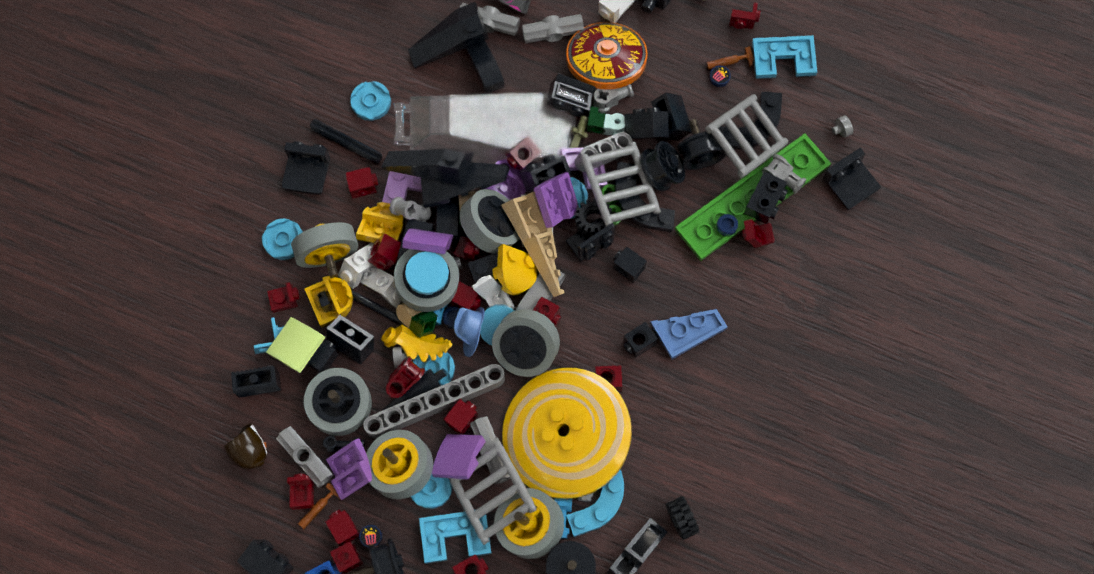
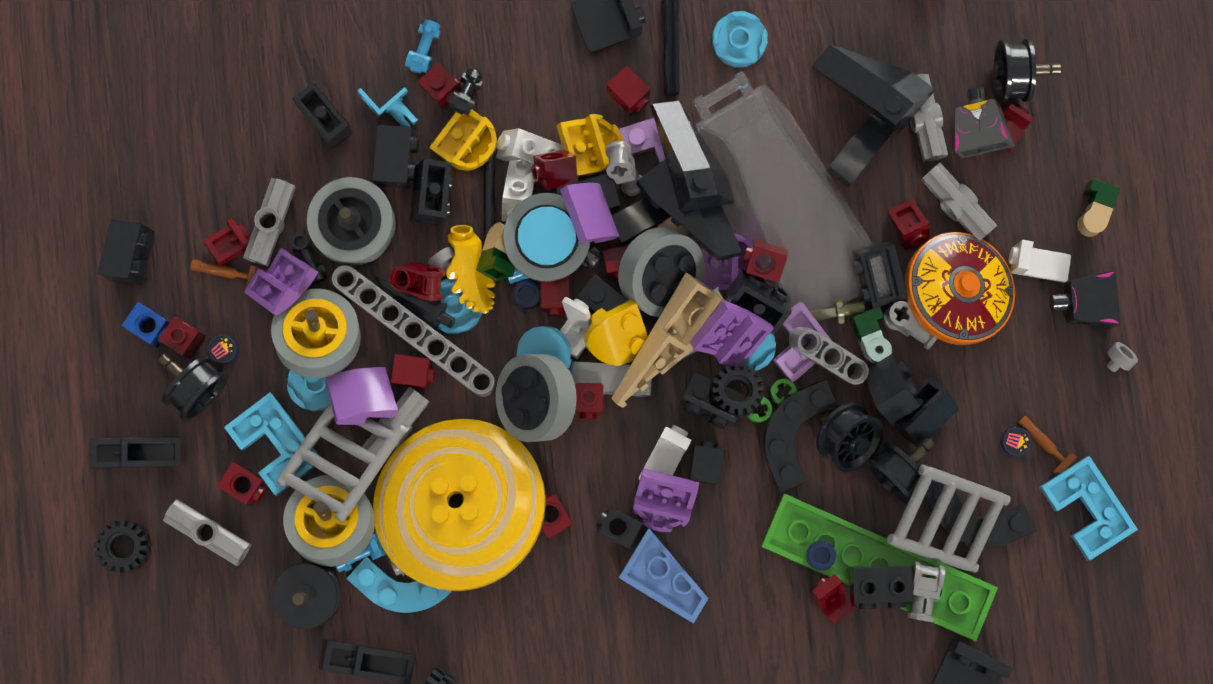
camera: 55 degrees right, 10 degrees up
(247, 448) = (242, 152): dark brown piece -> none
(258, 302) = (418, 60): none -> dark azure bar
(278, 238) = (510, 42): medium azure tile -> none
(295, 344) = (384, 135): yellowish green slope -> none
(302, 287) = (462, 101): none -> black bar
(324, 246) = (520, 96): light grey wheel -> none
(324, 301) = (456, 137): black tile -> none
(342, 527) = (213, 312): dark red brick -> none
(468, 328) = (518, 319): medium blue piece -> none
(549, 62) = (910, 224): none -> dark red bracket
(601, 199) = (760, 389): light grey bar -> none
(610, 287) = (668, 451): none -> white bracket
(638, 301) = (664, 500): none -> medium lavender slope
(745, 19) = (1108, 429): dark red bracket -> none
(843, 126) = (1034, 630): light grey tile -> none

